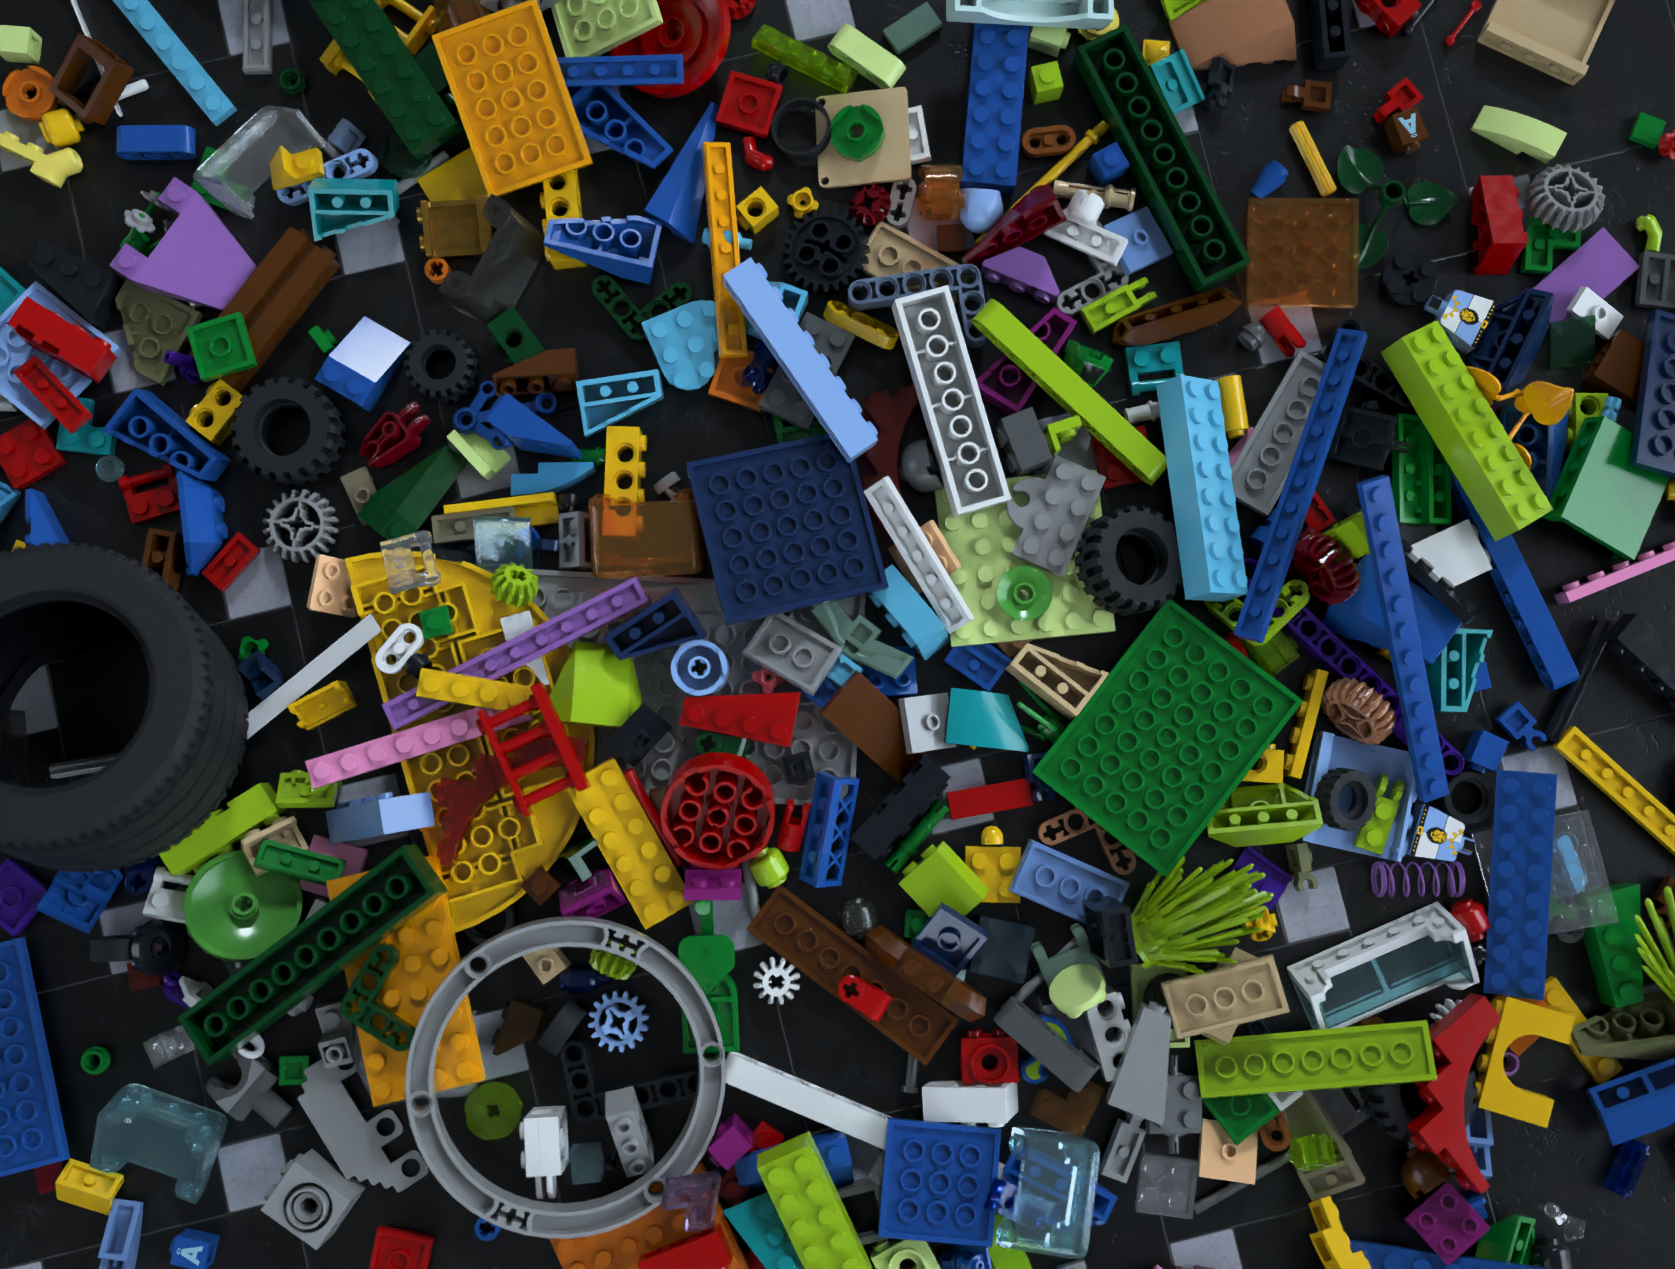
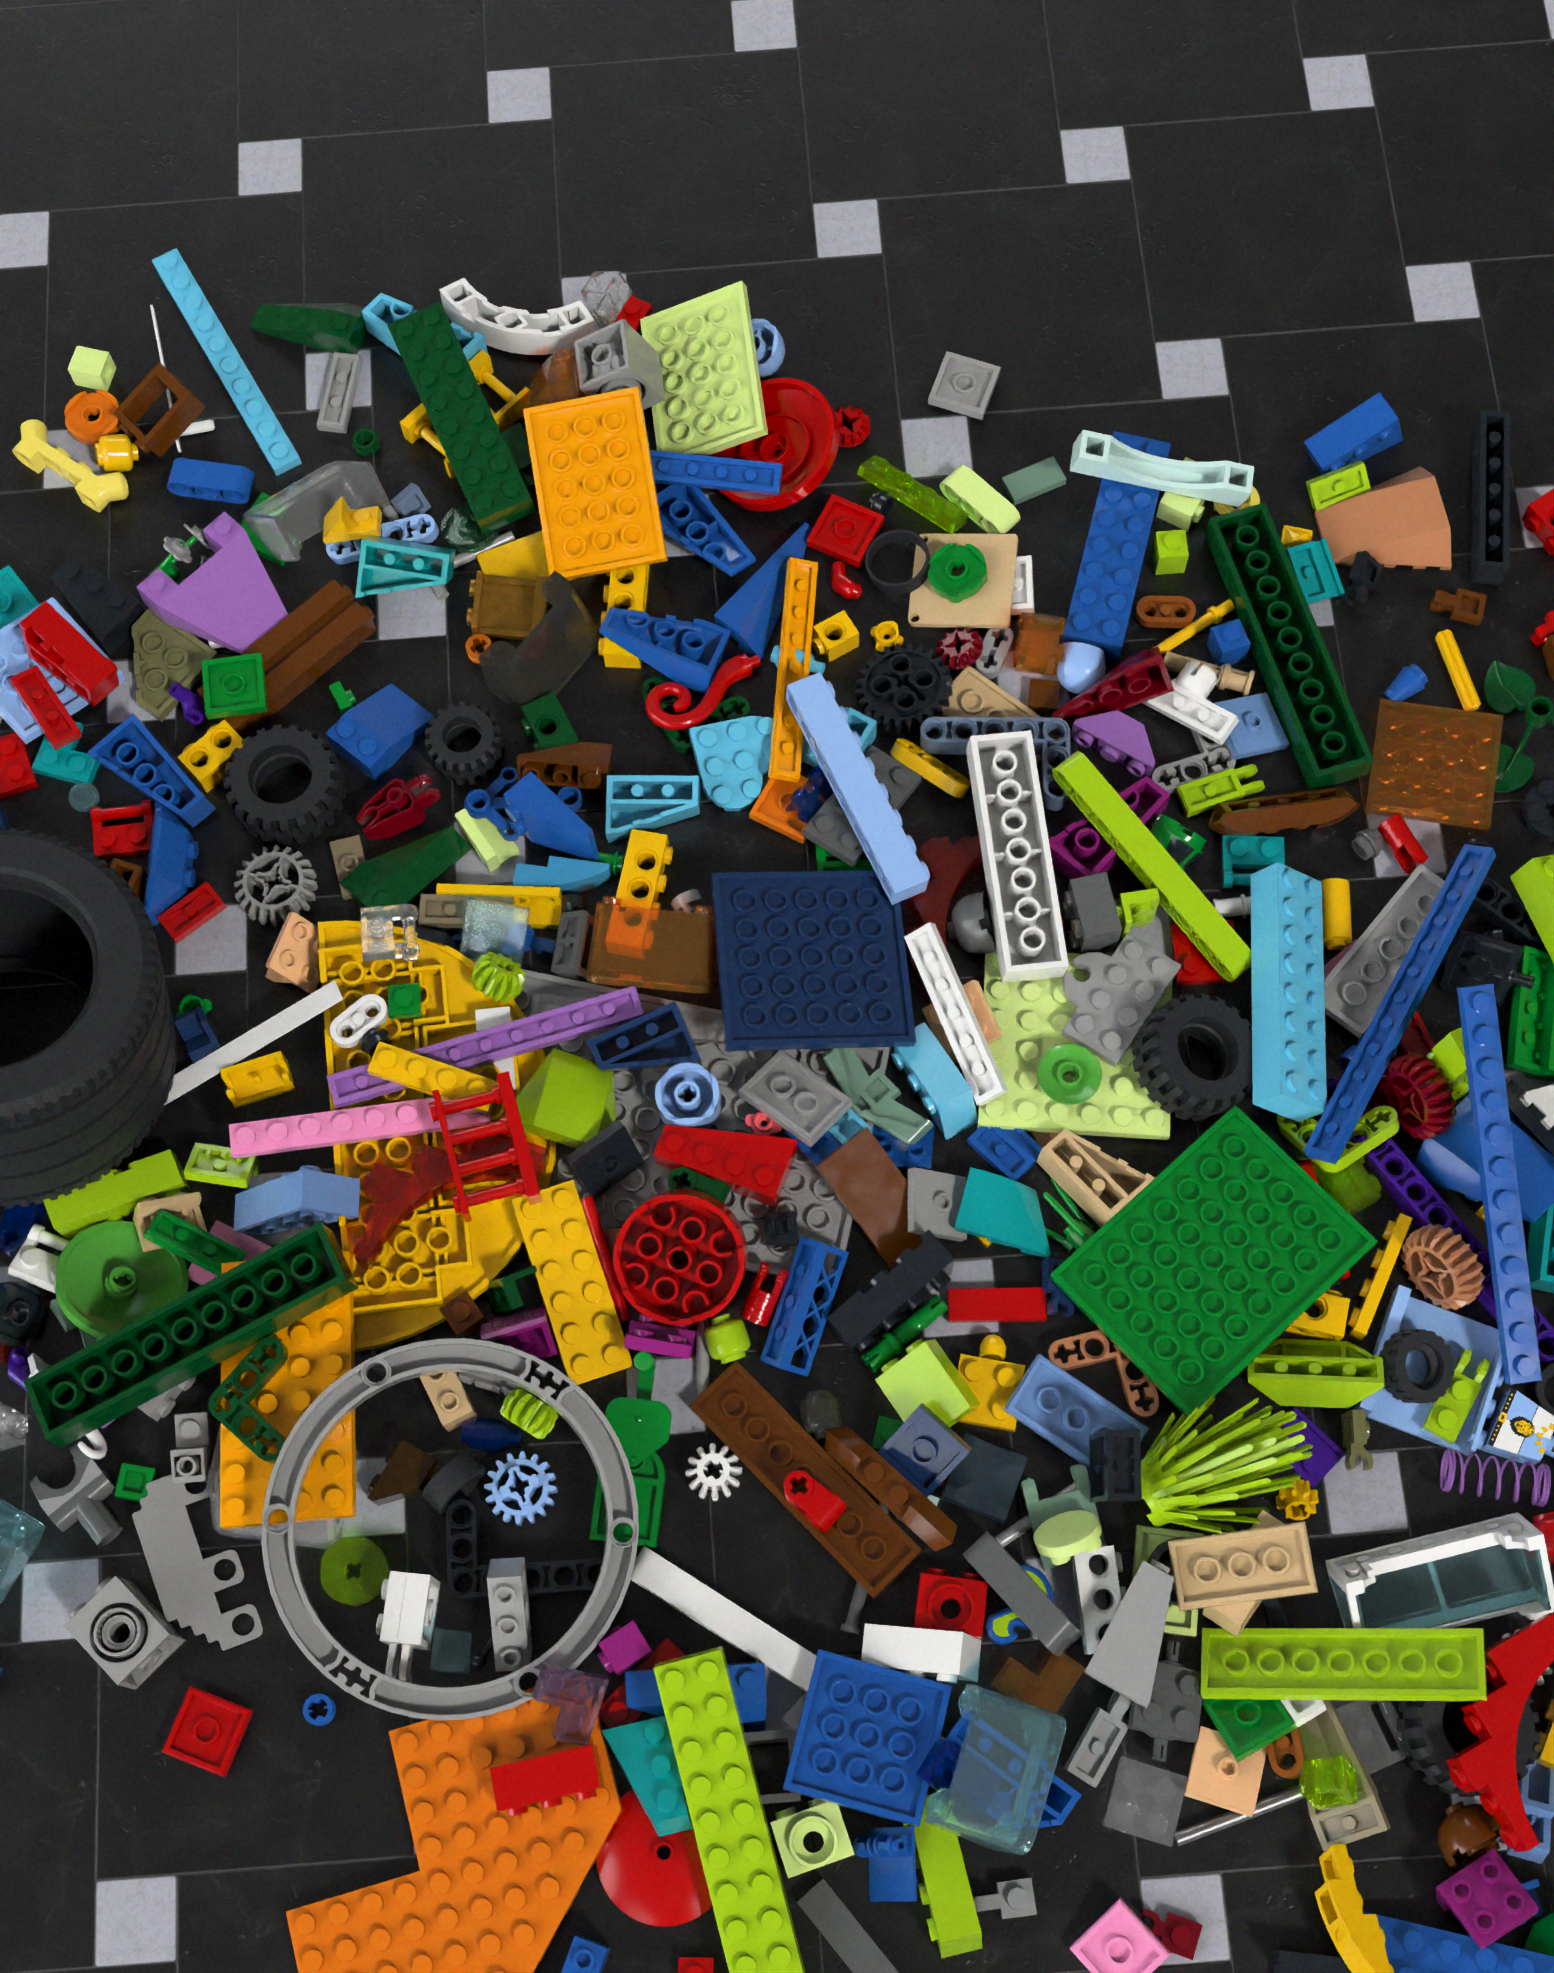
camera: 15 degrees right, 15 degrees down
(667, 261) = (727, 674): none -> red plant

